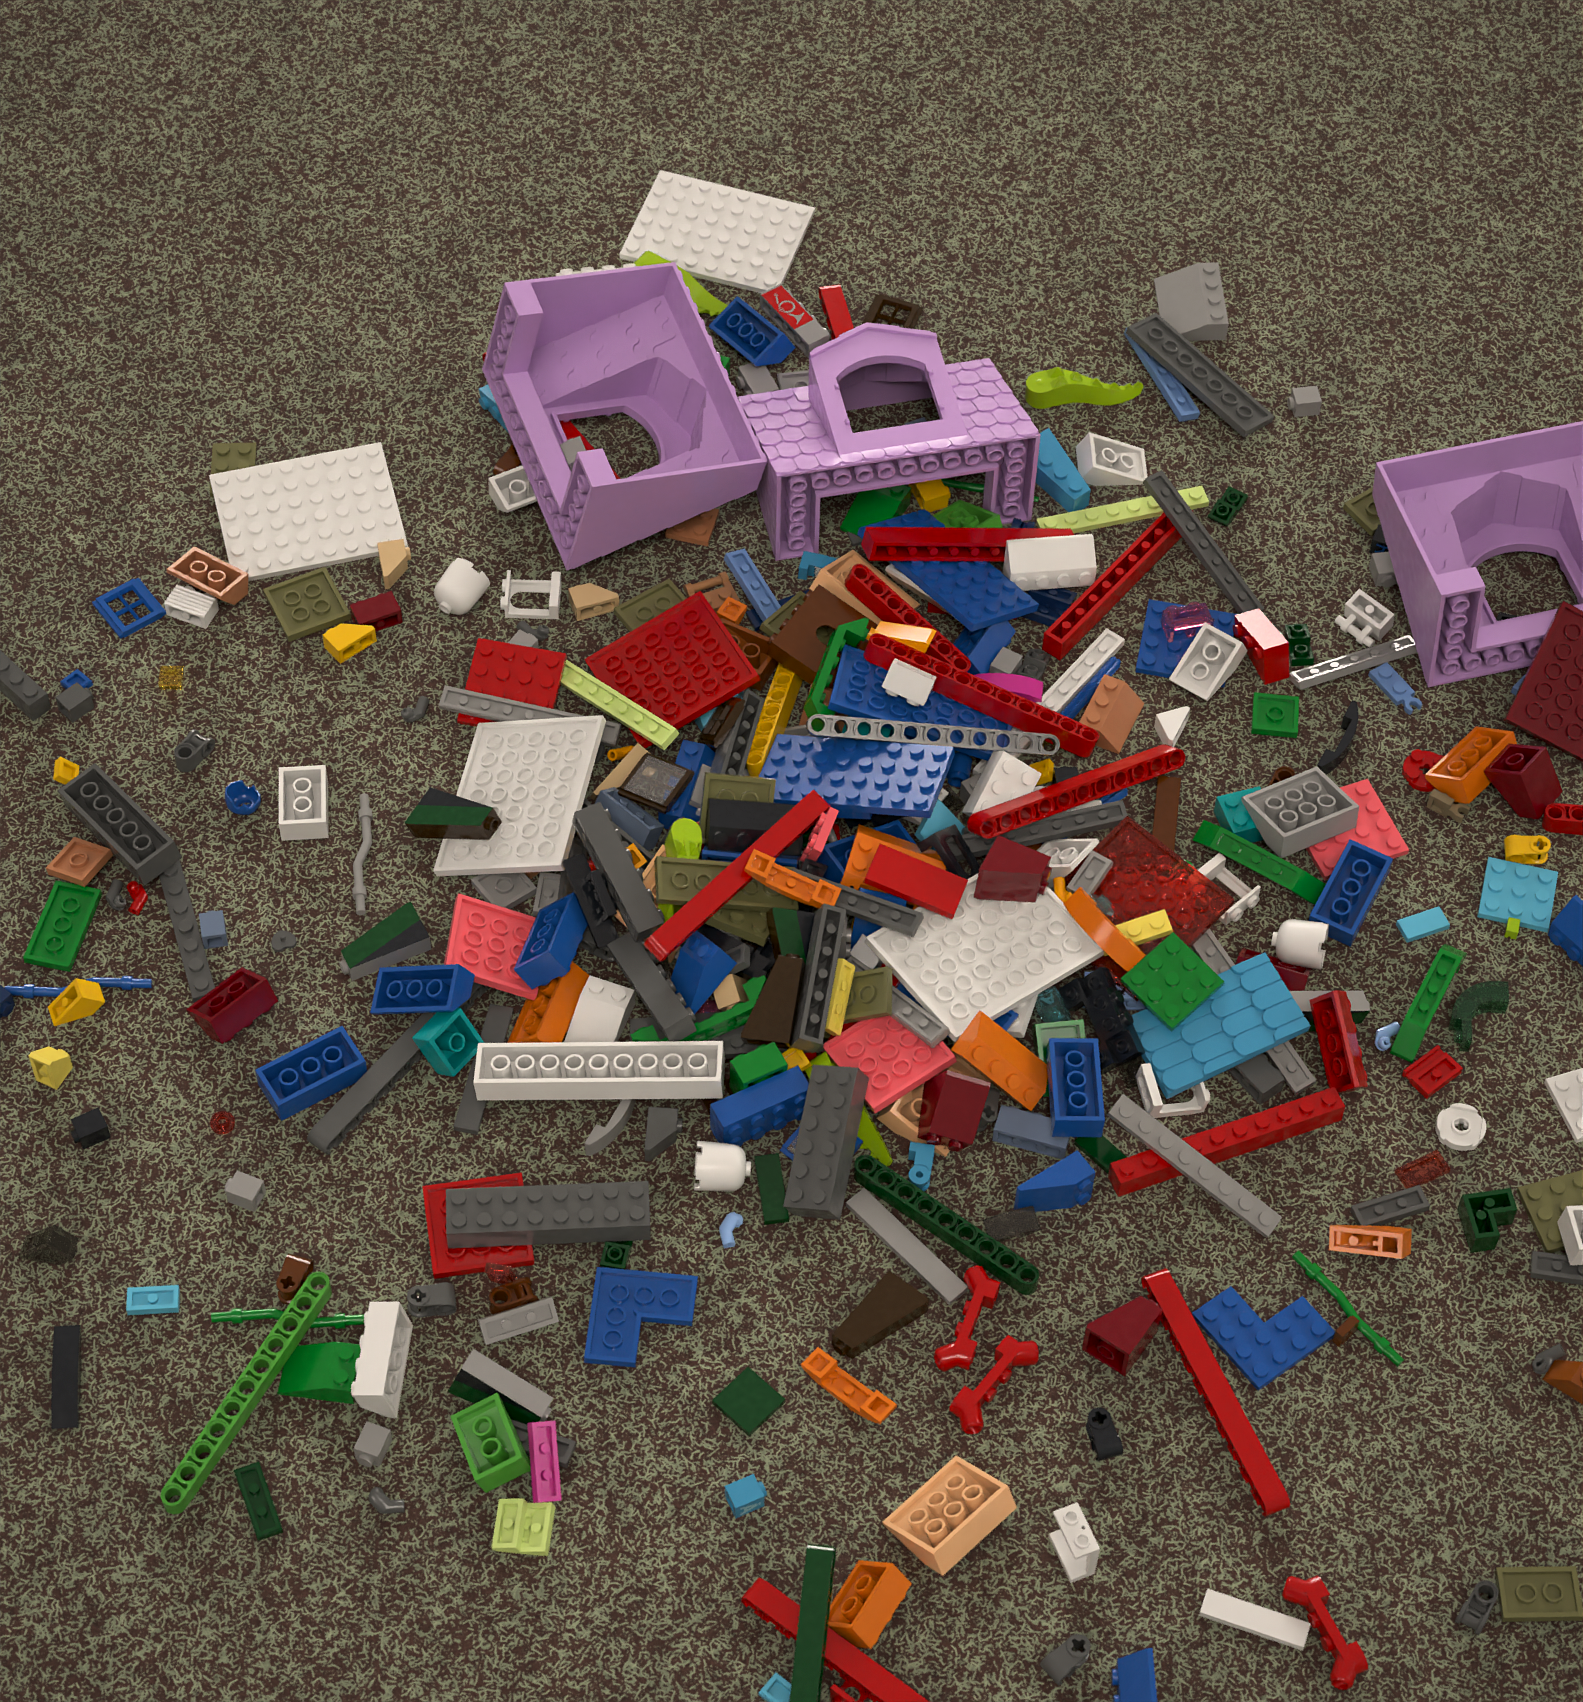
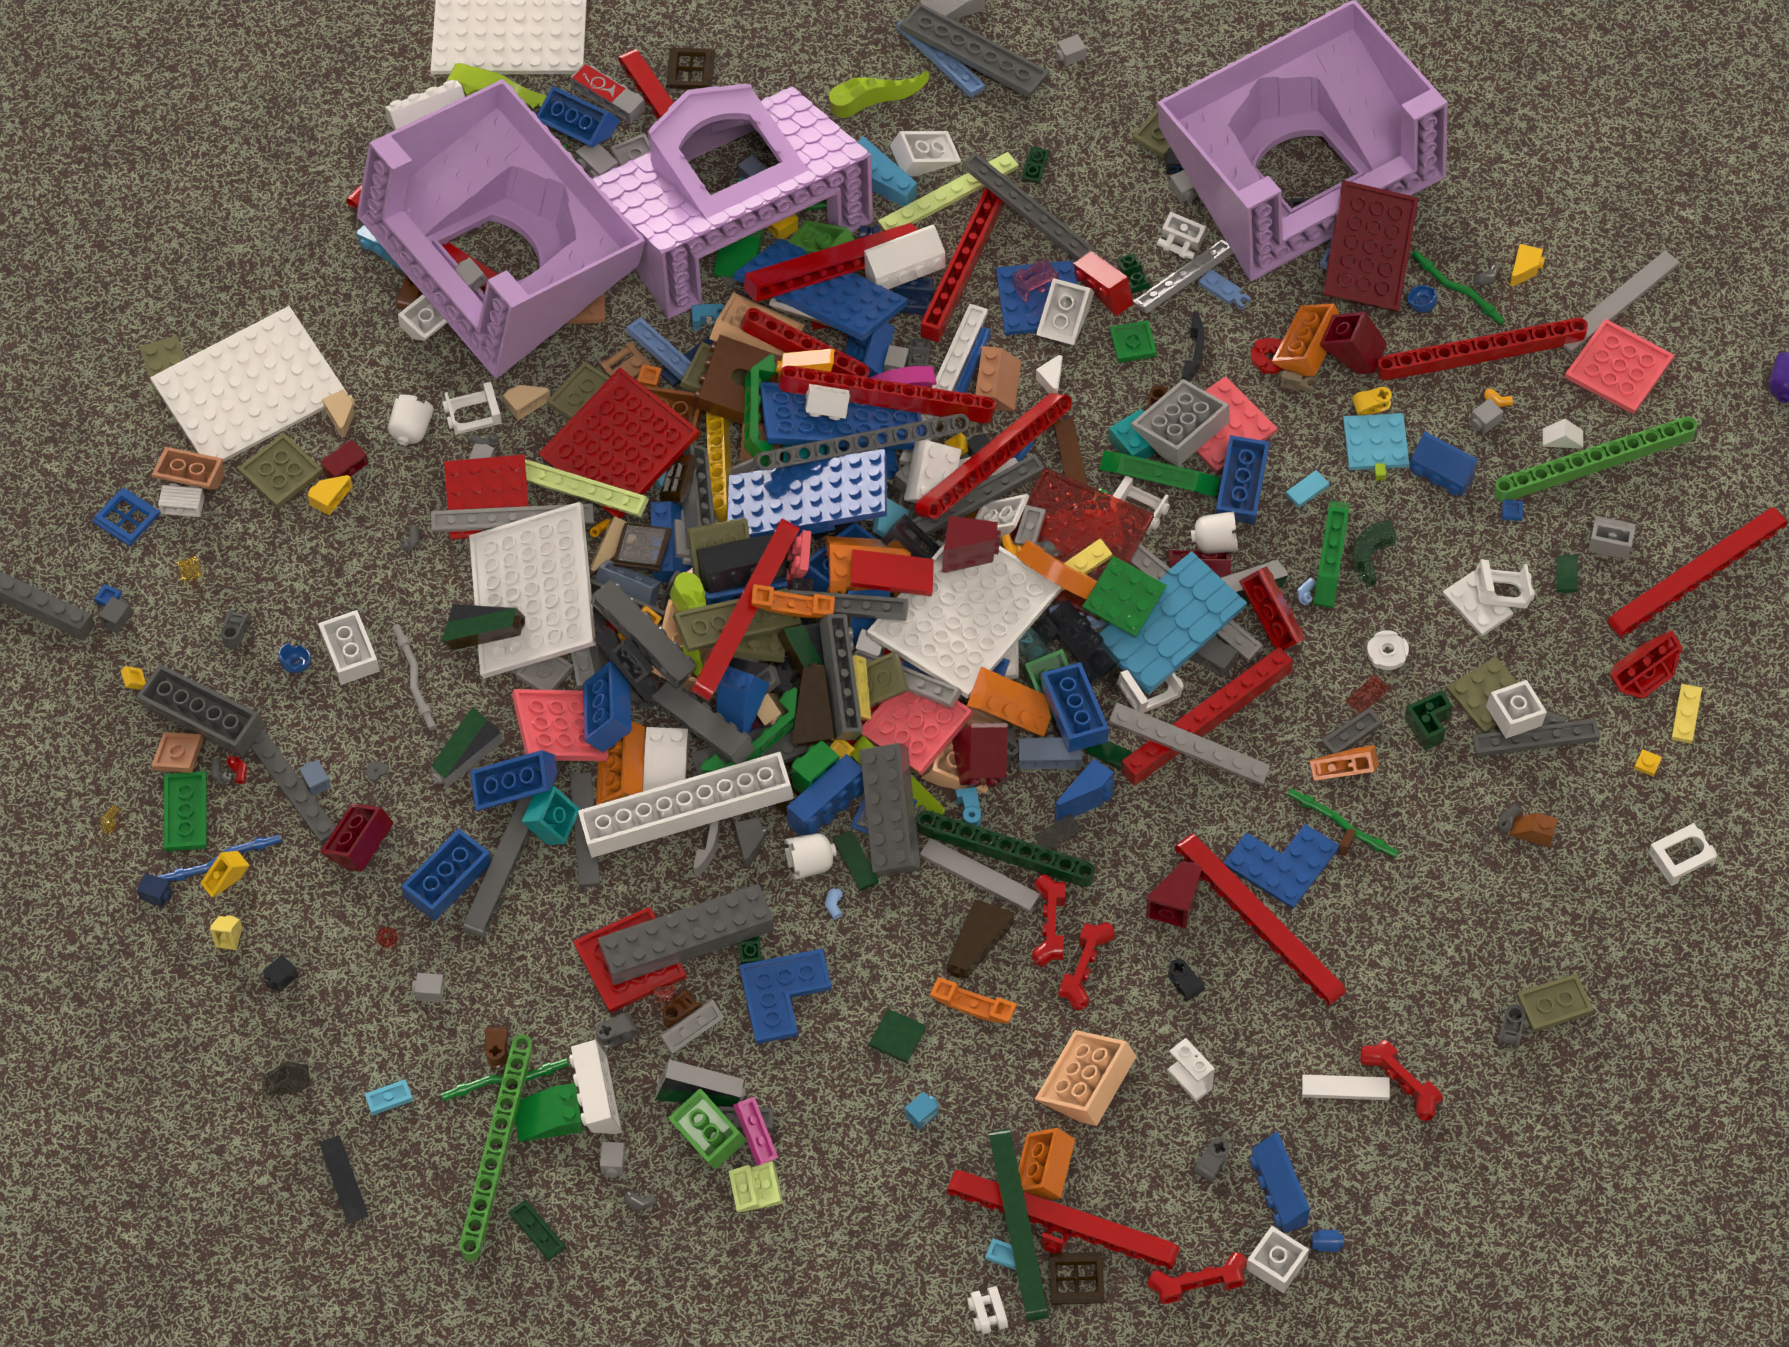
camera: 15 degrees left, 5 degrees up
(1432, 1071) = (1351, 611): red plate -> none

